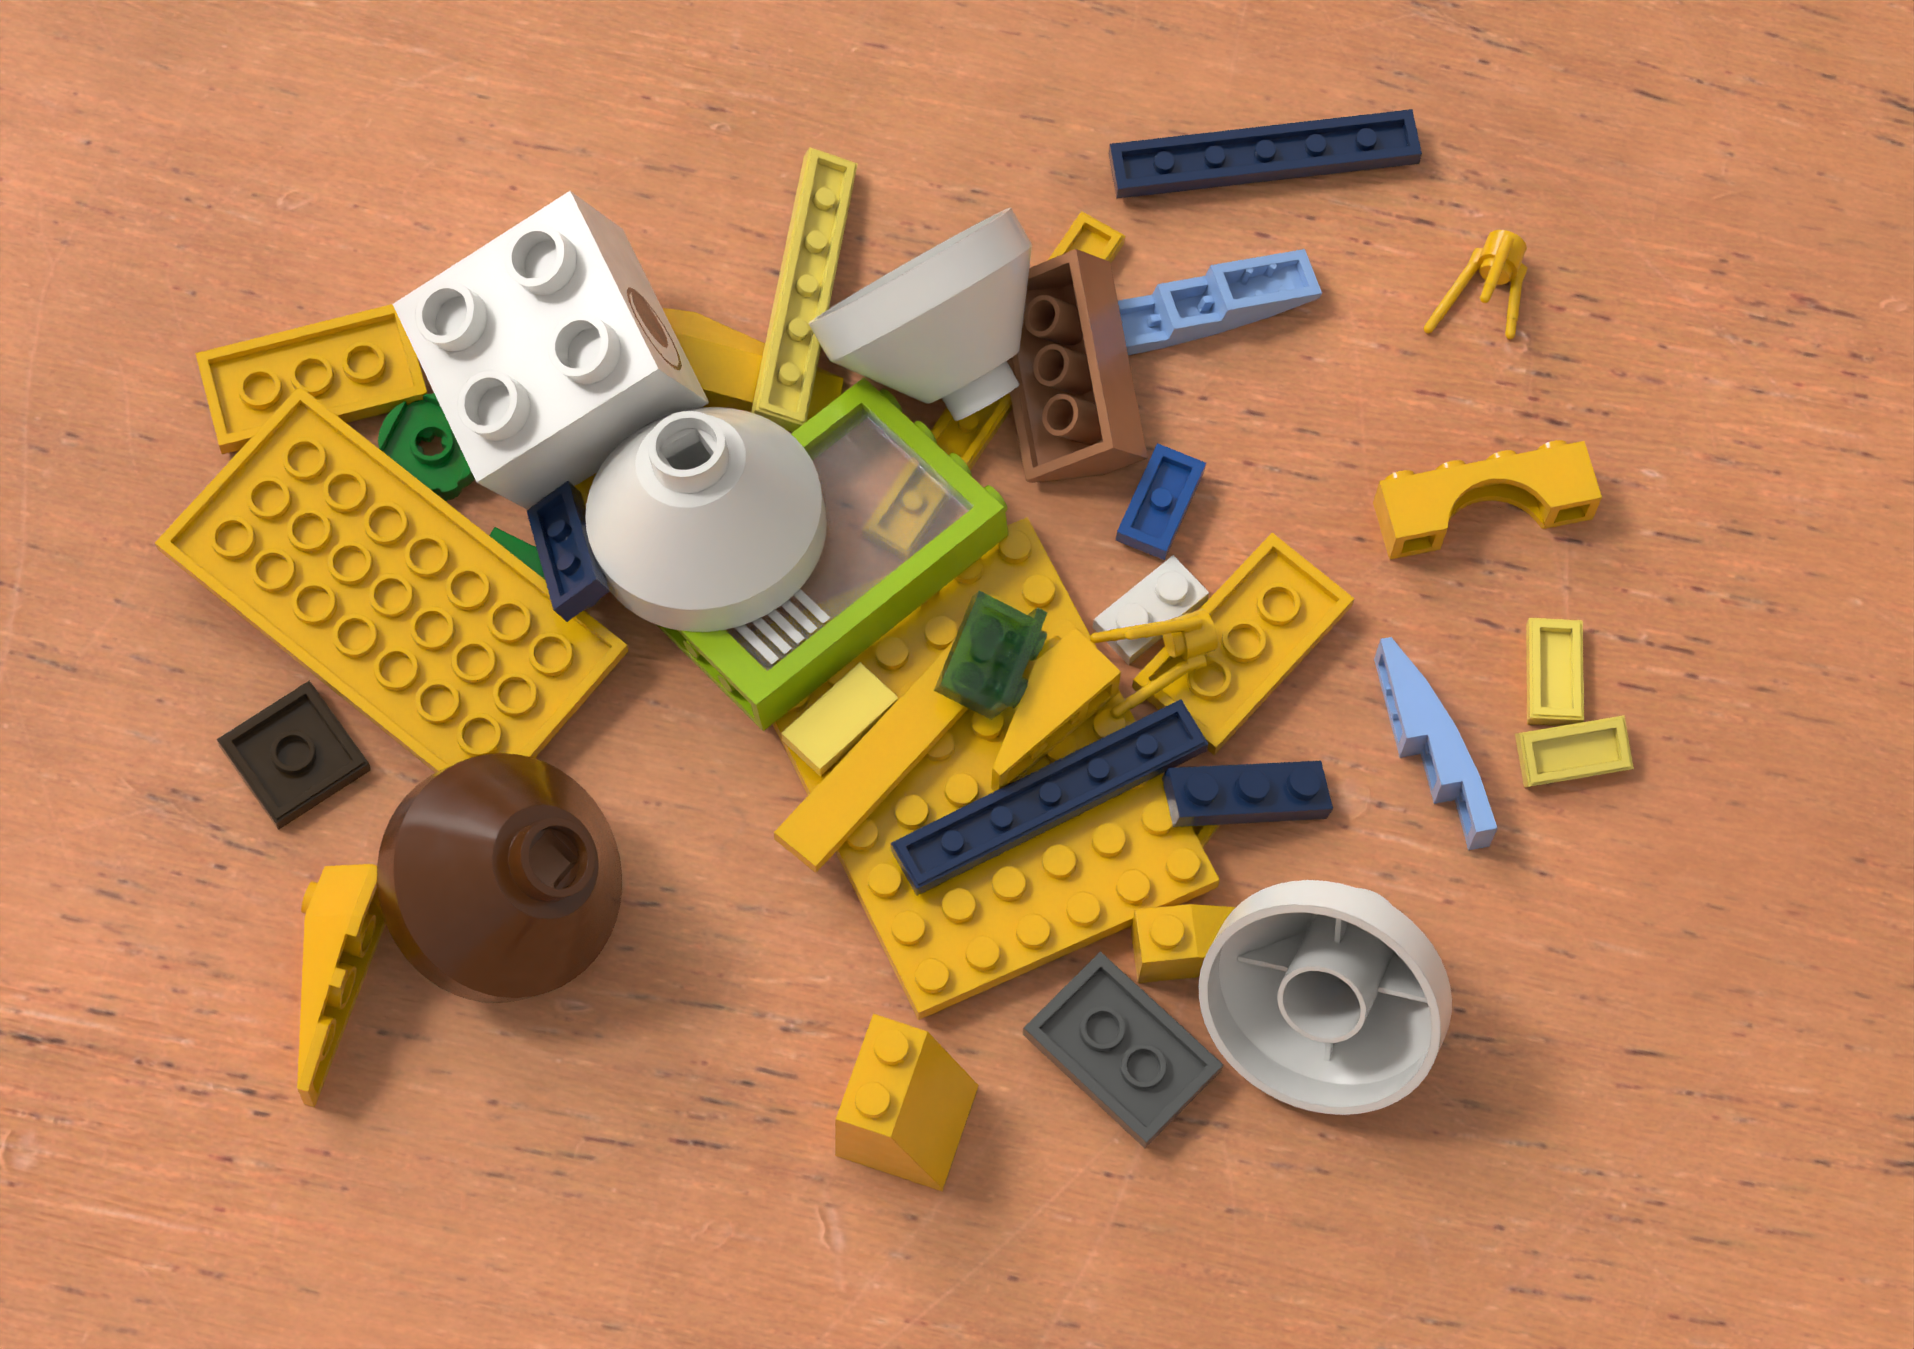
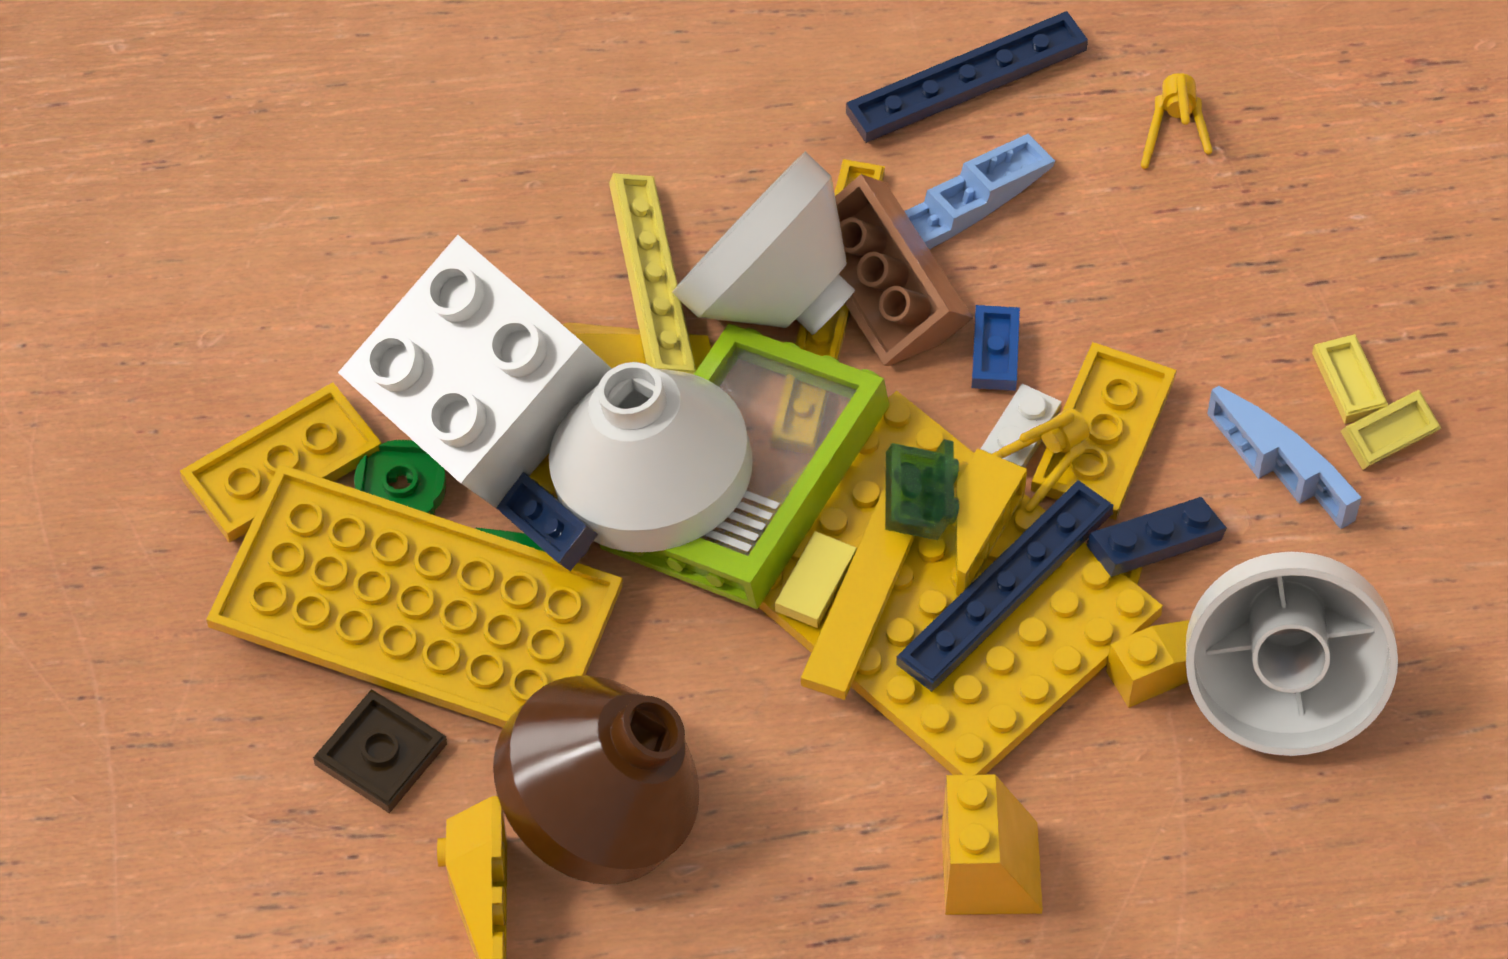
camera: 15 degrees left, 10 degrees down
(1122, 1049) = (1140, 757): dark grey plate -> none
(1549, 484) = (1286, 244): yellow arch -> none

